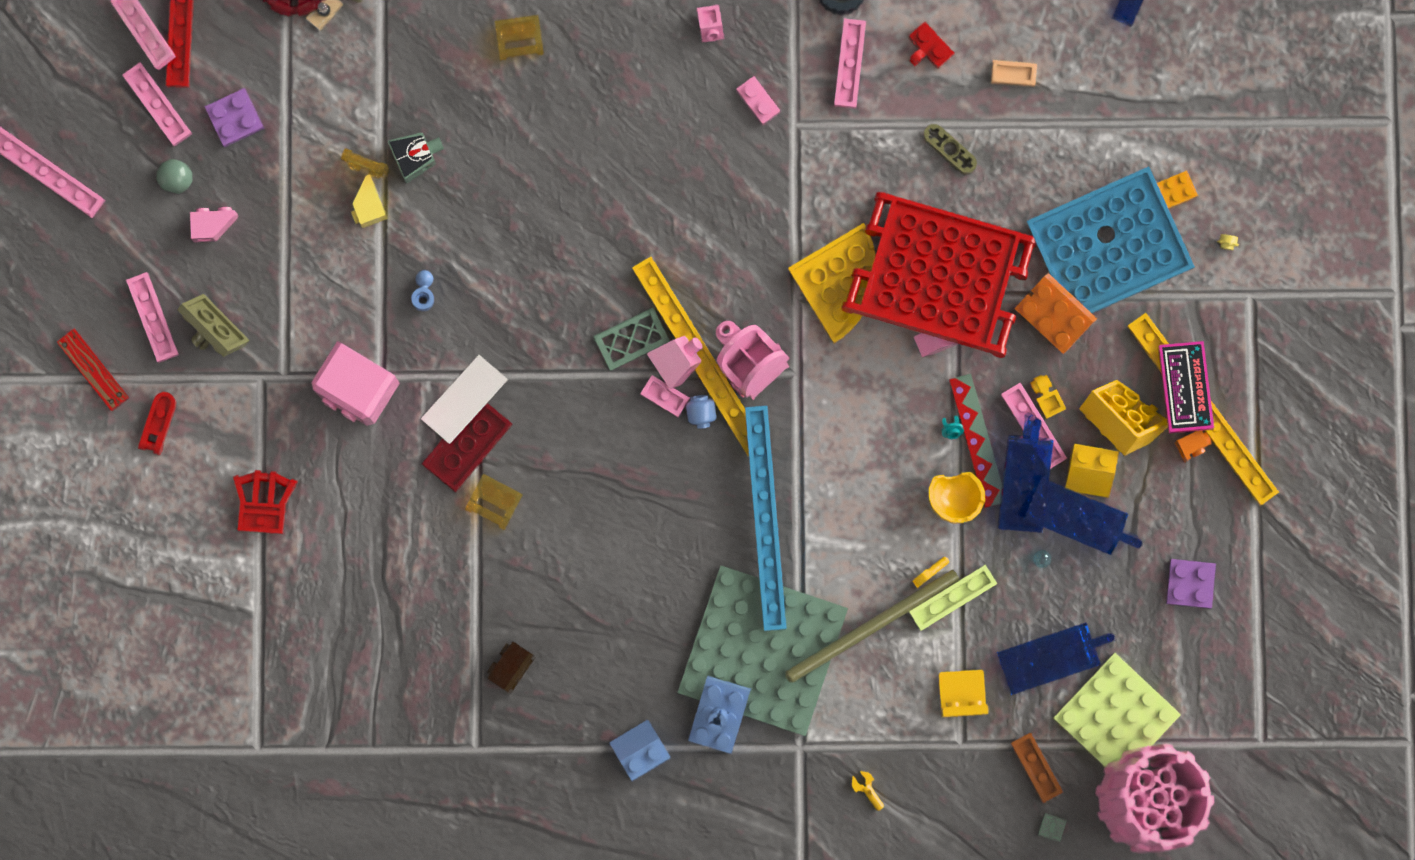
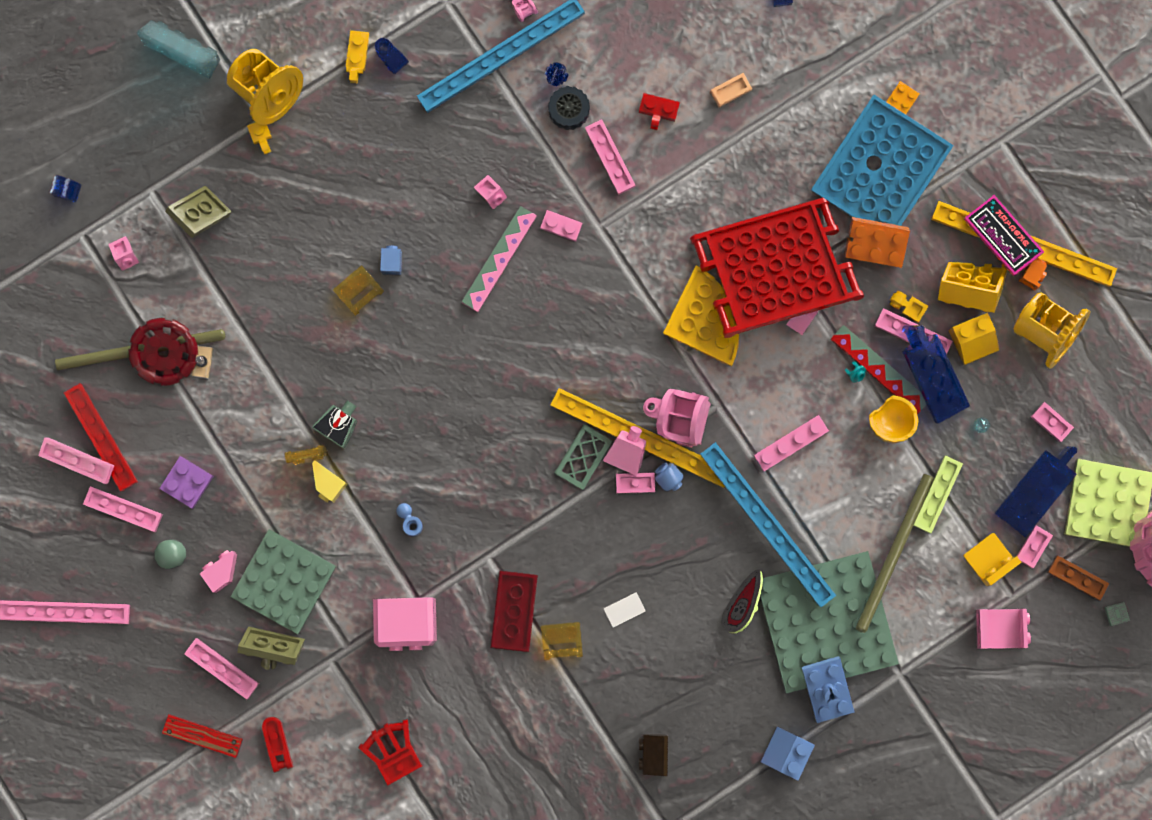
camera: 35 degrees left, 0 degrees up
(265, 272) = (283, 581): none -> sand green plate
(464, 399) = (490, 579): white sticker -> none
(569, 29) = (391, 260): none -> medium blue brick
(574, 512) = (624, 609): none -> white sticker
(676, 94) = (499, 259): none -> tile
(692, 579) = (743, 604): none -> shield
(843, 456) = (791, 443): none -> bright pink plate
(872, 796) = (968, 673): yellow bar -> none
(928, 573) = (908, 491): yellow bar -> none
(929, 768) = (1002, 628): none -> bright pink panel
(949, 158) = (708, 166): olive beam -> none
(1013, 709) = (1034, 546): none -> bright pink plate
(1079, 517) = (992, 377): clear blue hinge -> none
(1113, 600) = (1052, 422): none -> bright pink plate
(1174, 513) = (1052, 321): none -> yellow piece
(1191, 583) = (1097, 374): medium lavender plate -> none
(1228, 242) = (962, 113): light yellow plate -> none

